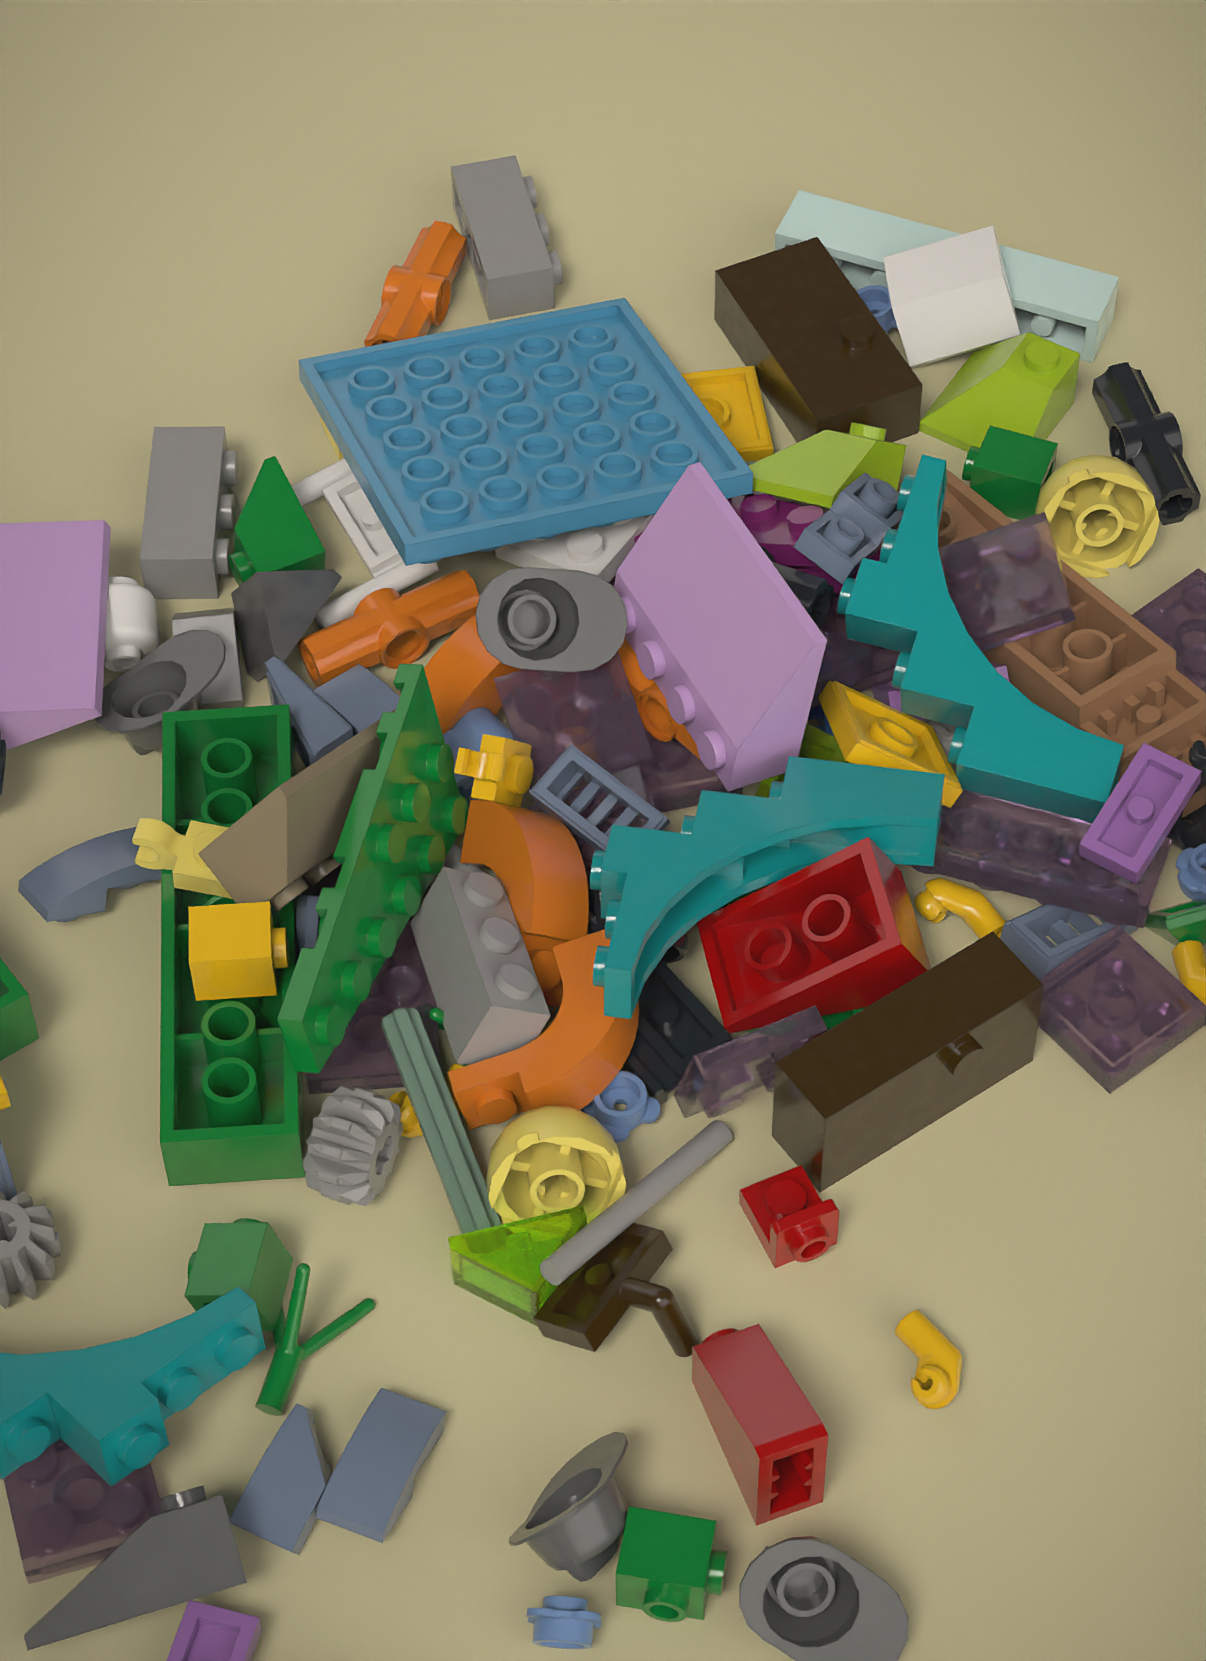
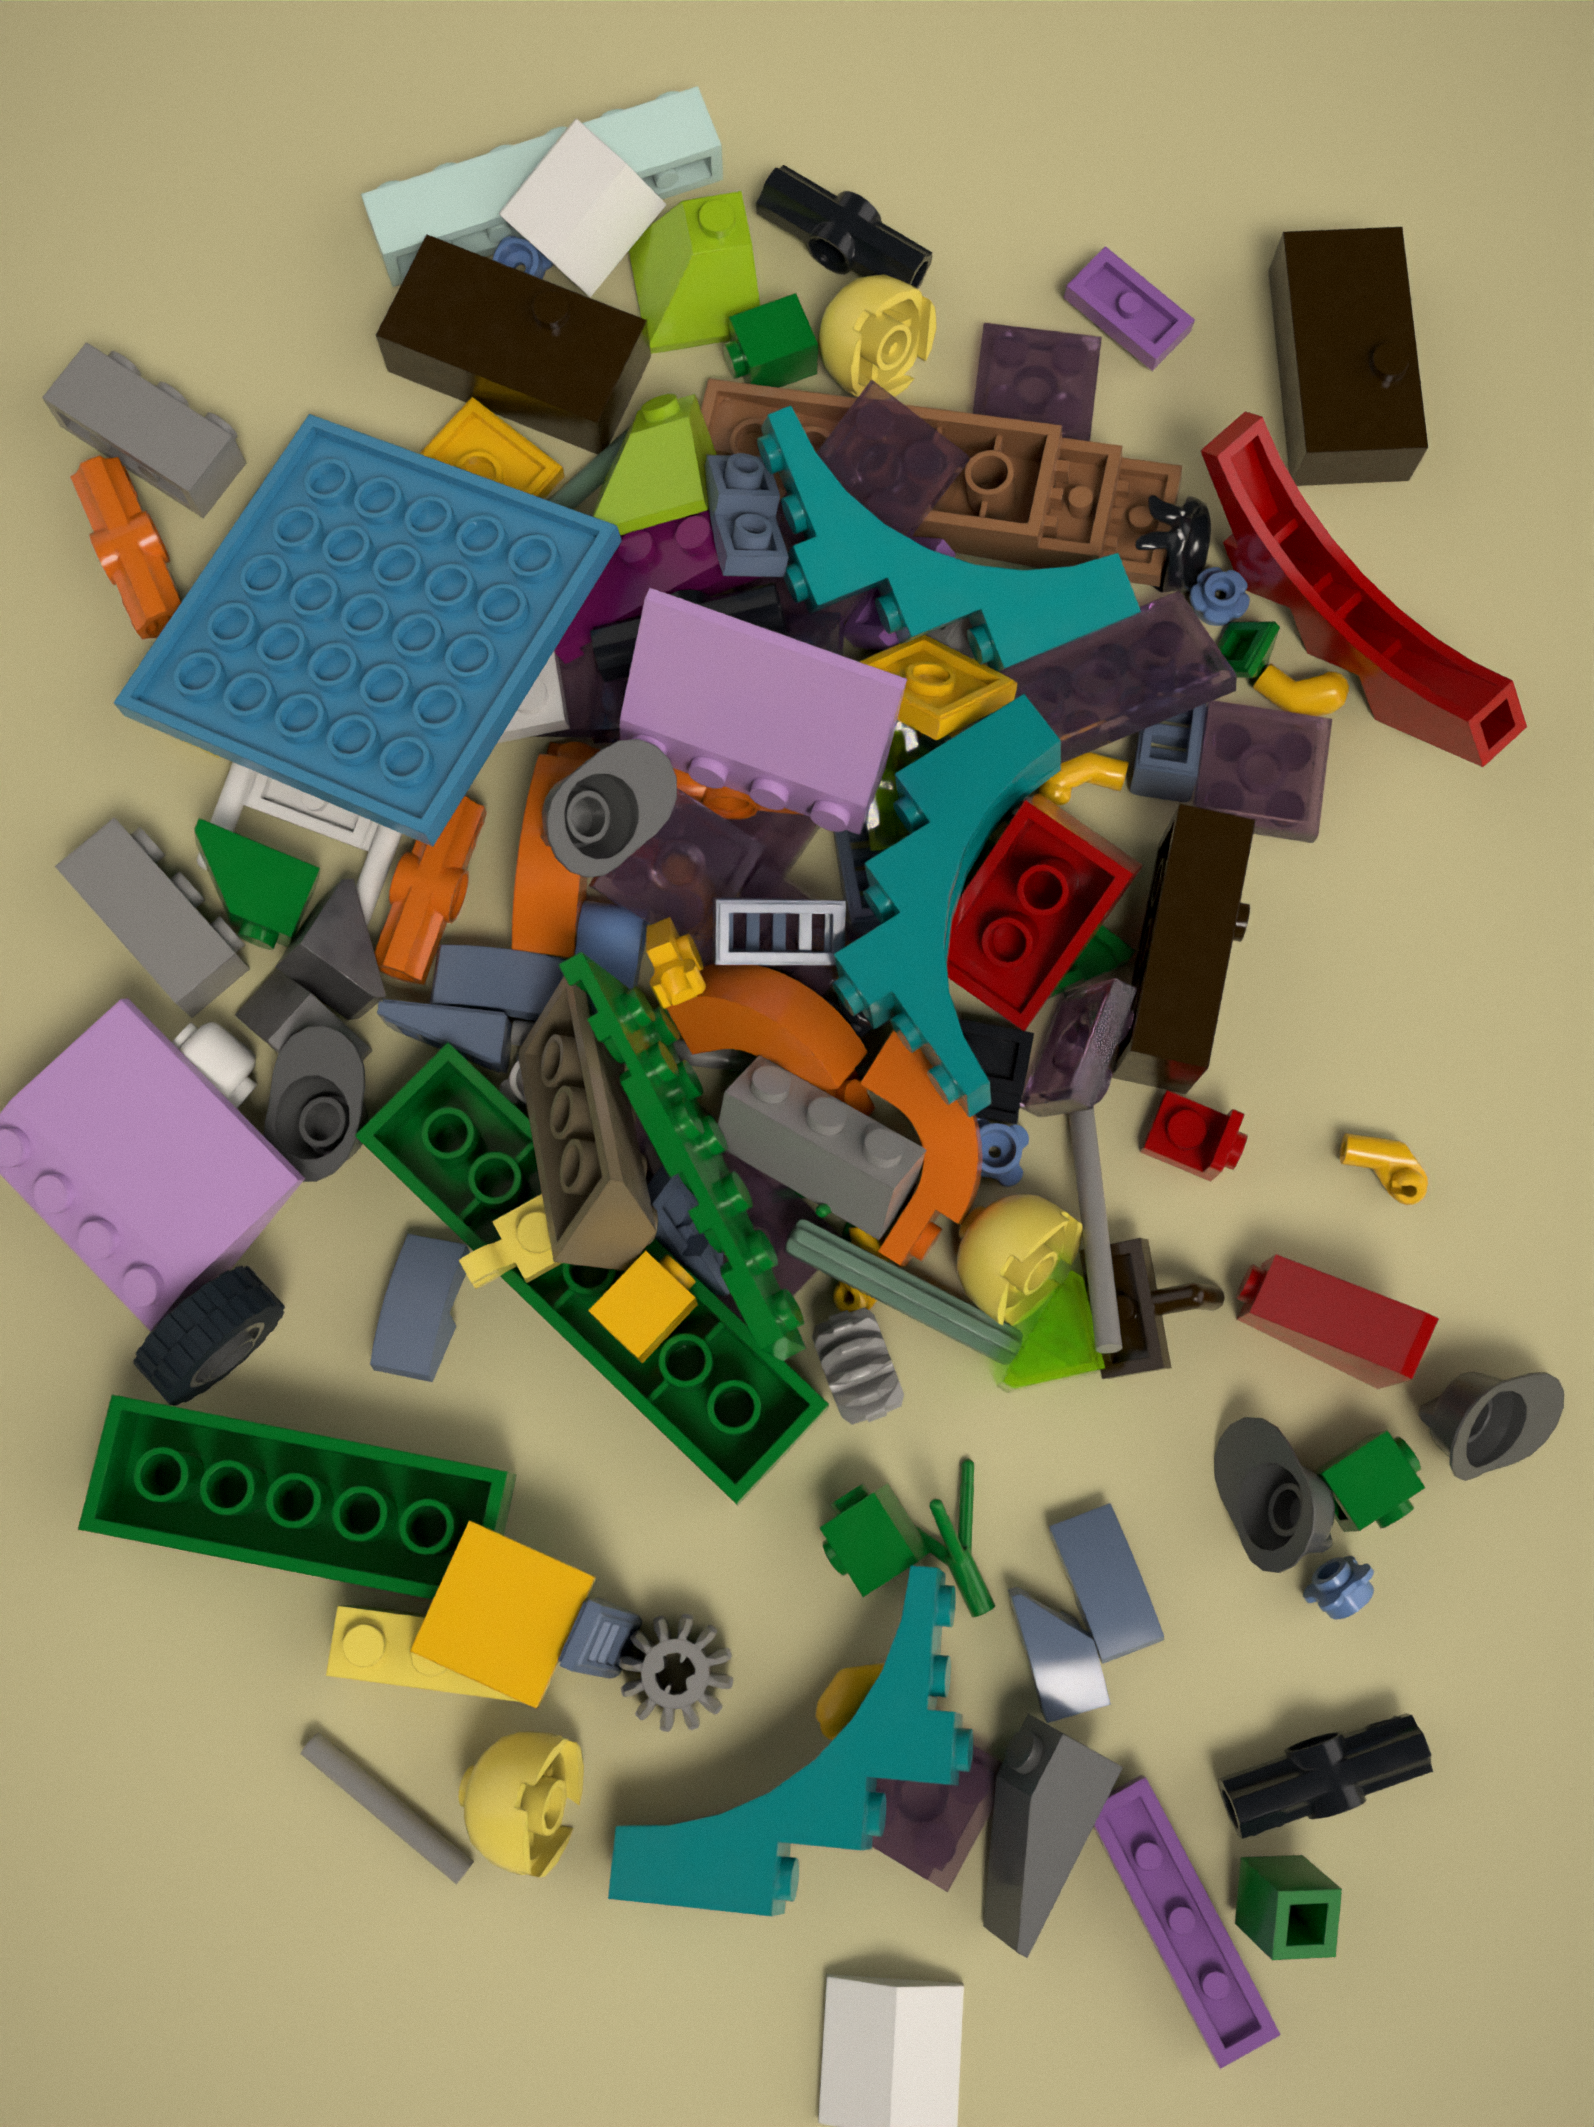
camera: 45 degrees left, 25 degrees up
(1139, 813) = (1170, 599): medium lavender plate -> none

